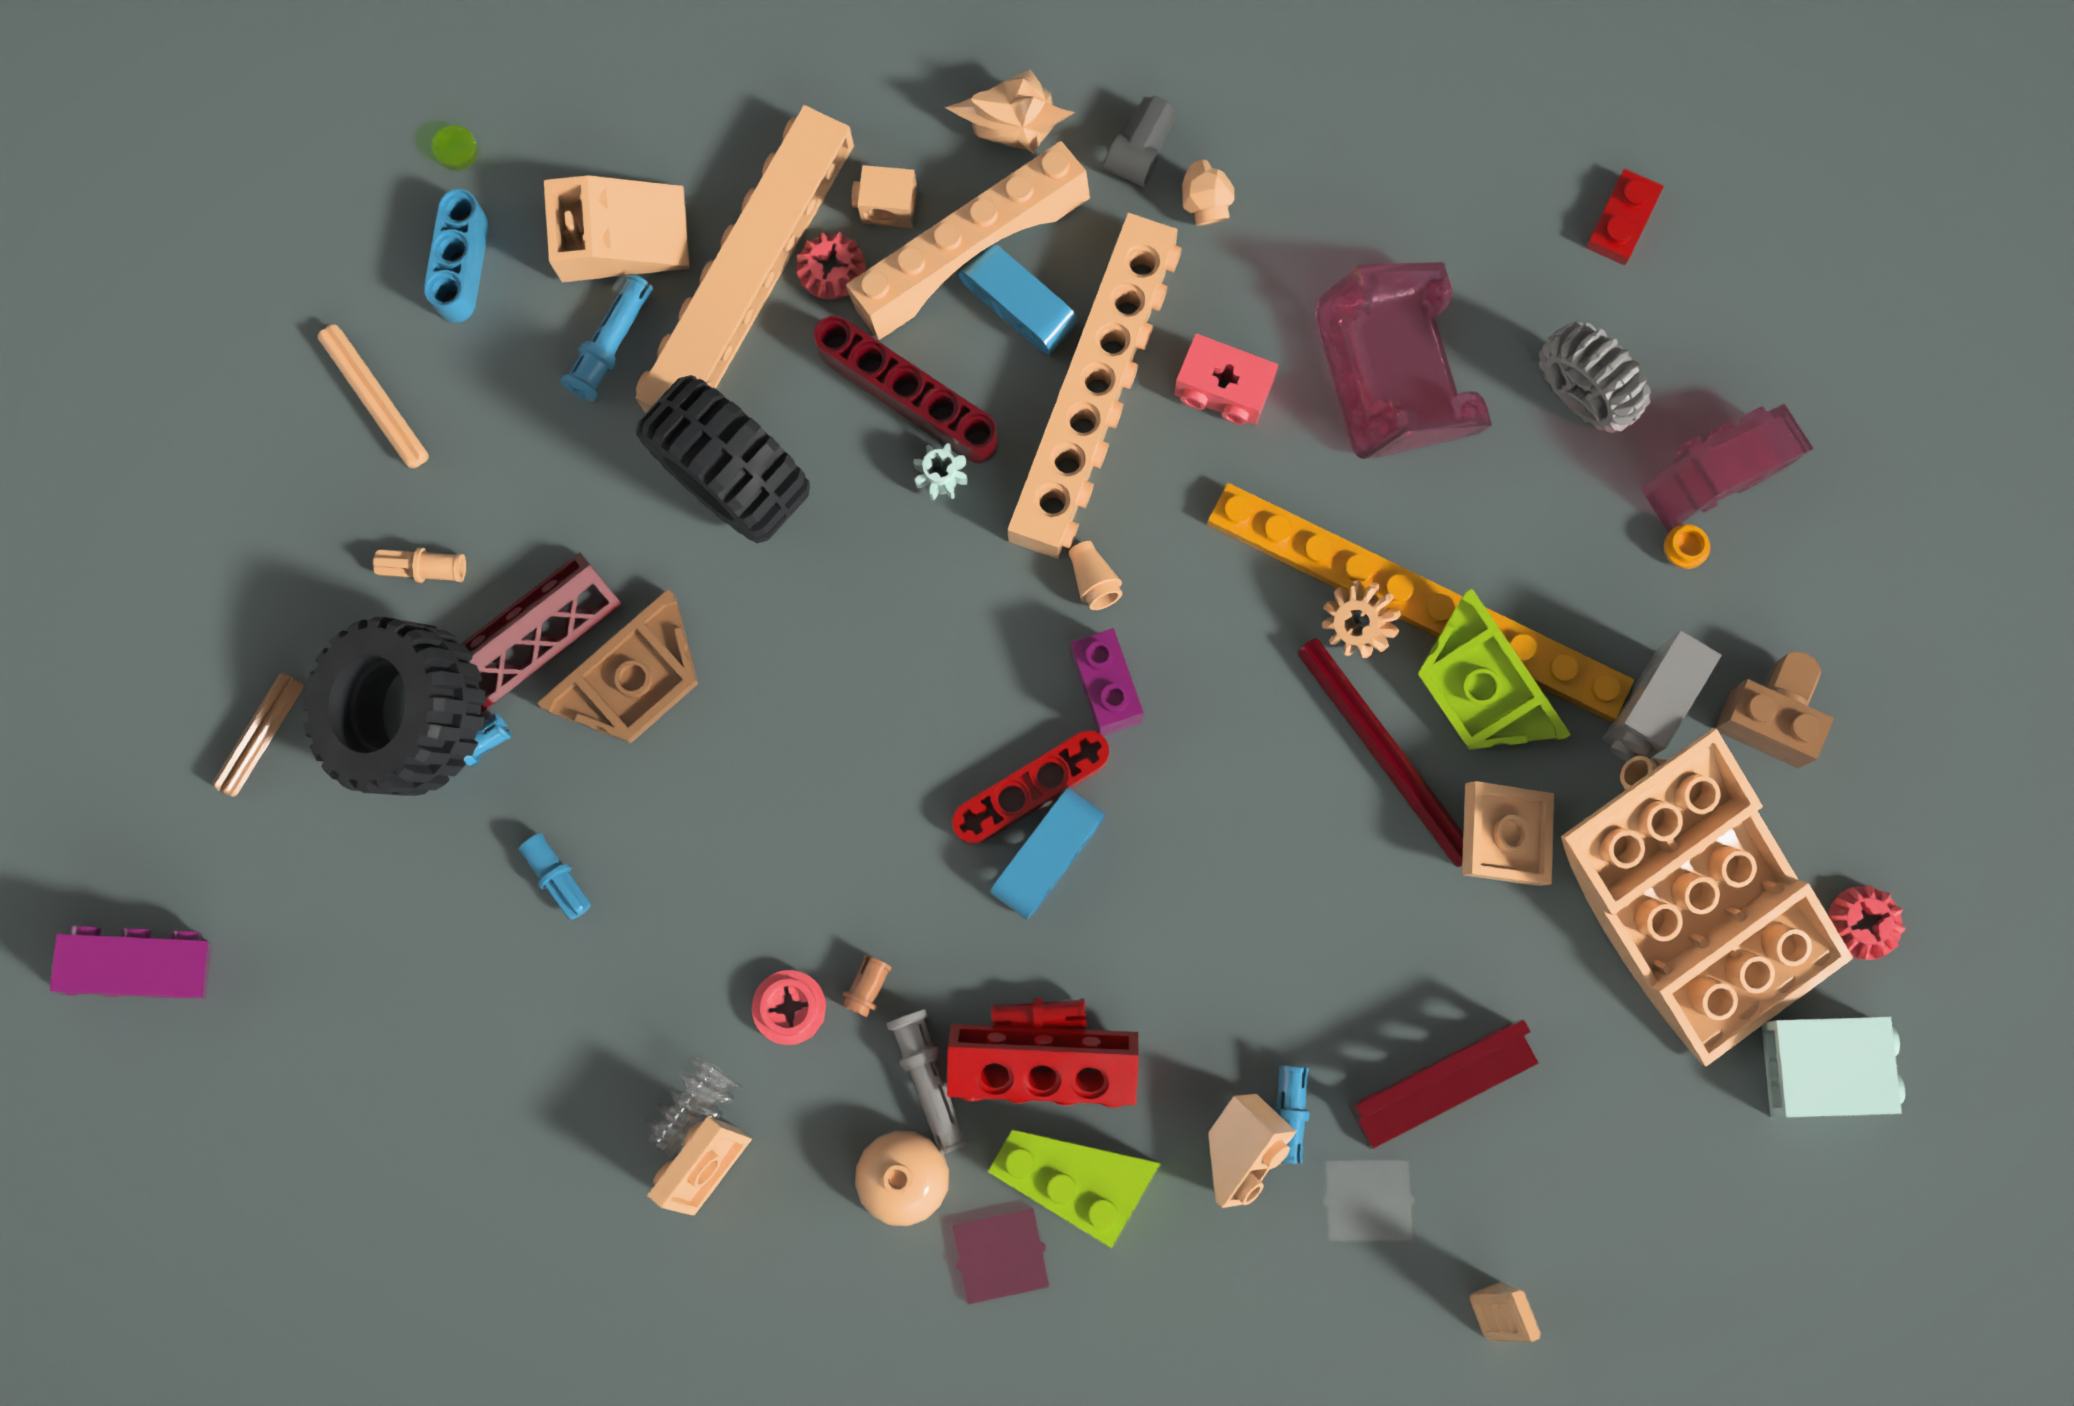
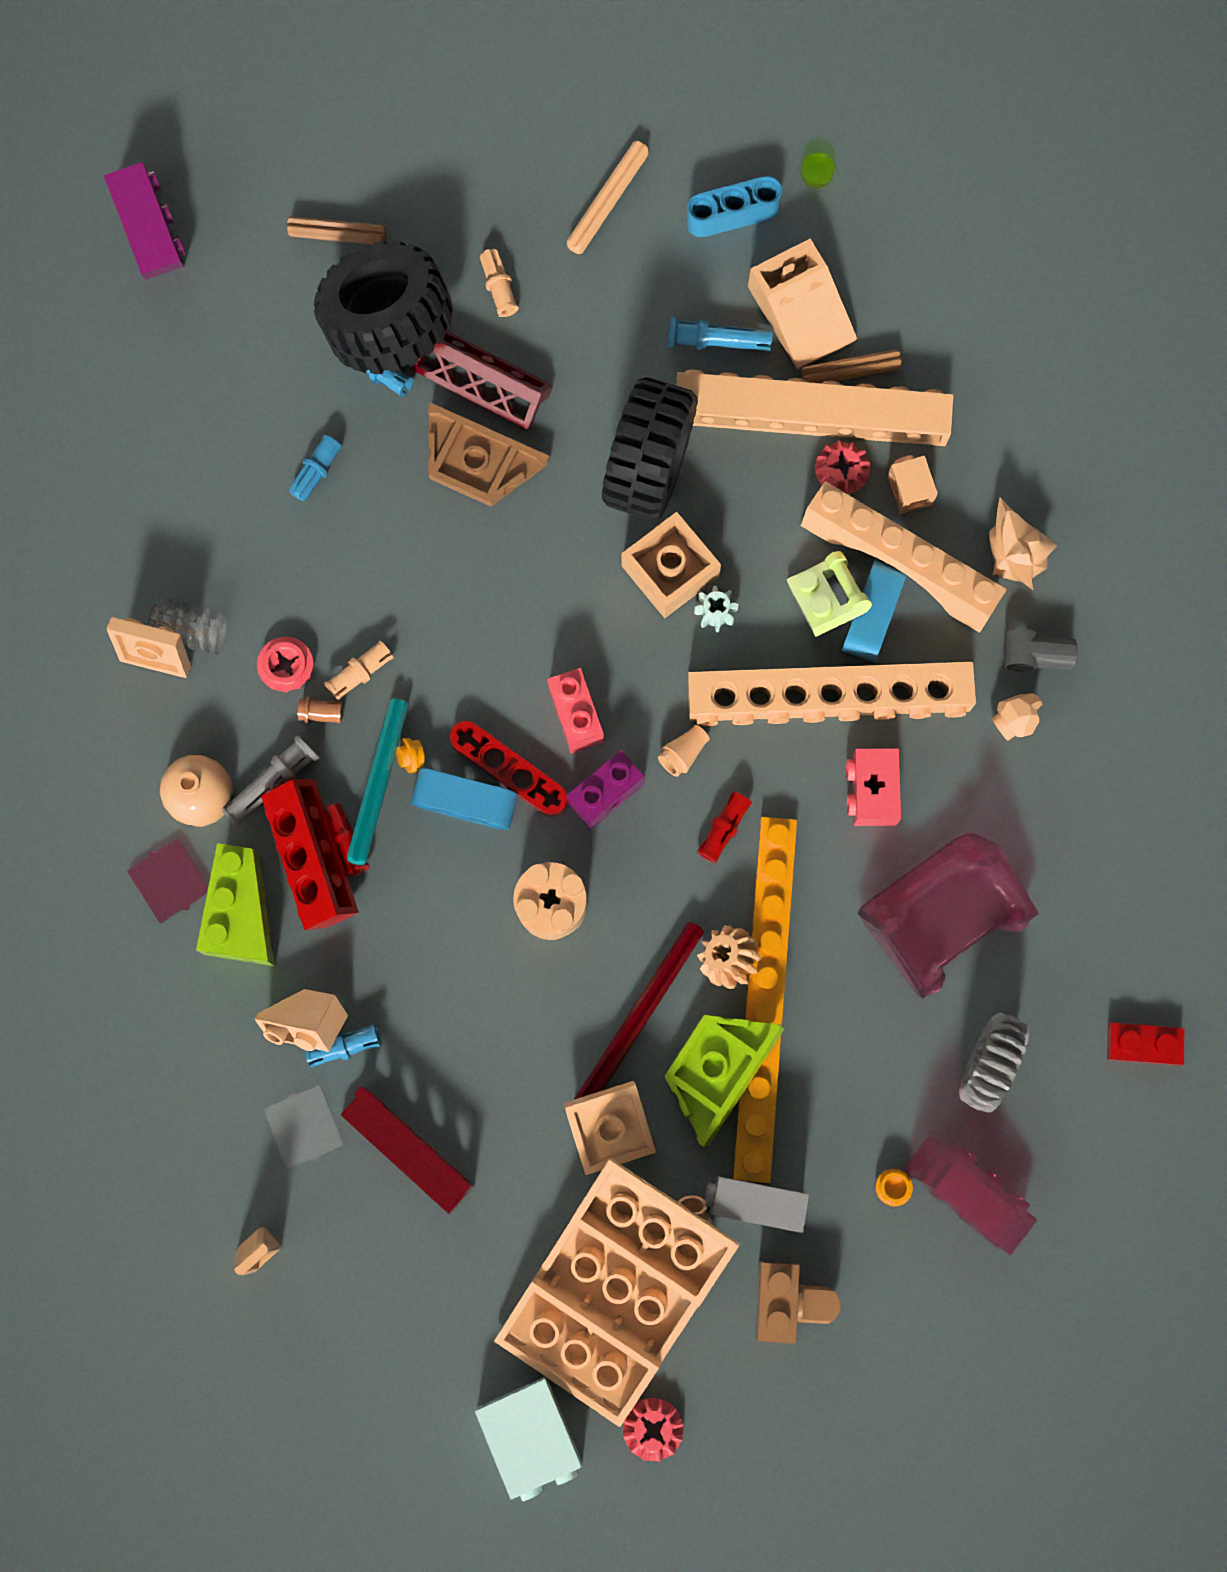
camera: 65 degrees right, 0 degrees up
(715, 206) = (852, 367): none -> medium nougat axle
(835, 919) = (358, 670): none -> light nougat pin
(867, 499) = (670, 564): none -> light nougat brick
(897, 371) = (768, 543): dark red beam -> none
(968, 896) = (410, 755): none -> light orange plate
(979, 352) = (818, 599): none -> yellowish green plate
(986, 948) = (377, 782): none -> teal axle
(996, 679) = (575, 710): none -> coral brick
(1202, 567) = (724, 827): none -> red pin
(1212, 771) = (540, 882): none -> light nougat brick

